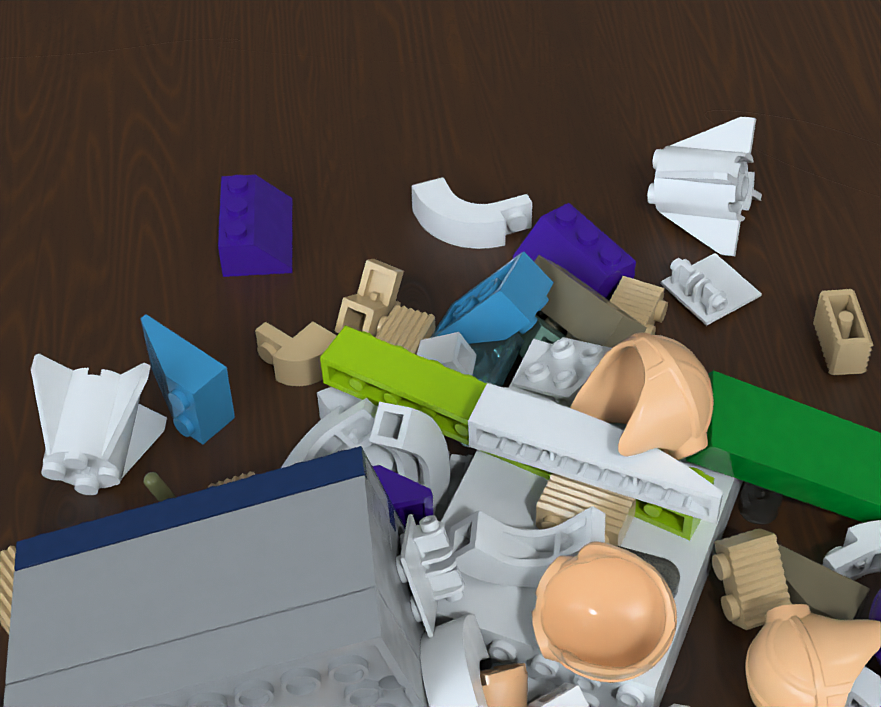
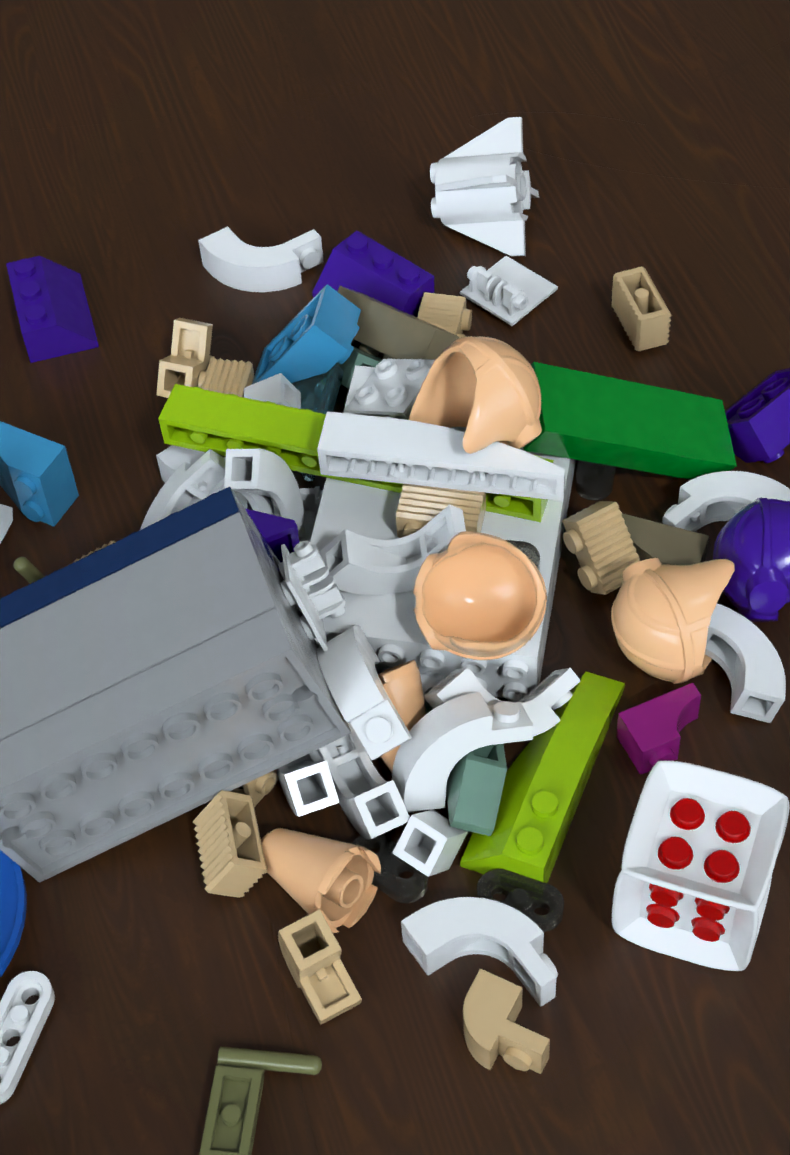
camera: 10 degrees left, 5 degrees up
(295, 358) = (127, 428): tan brick -> none

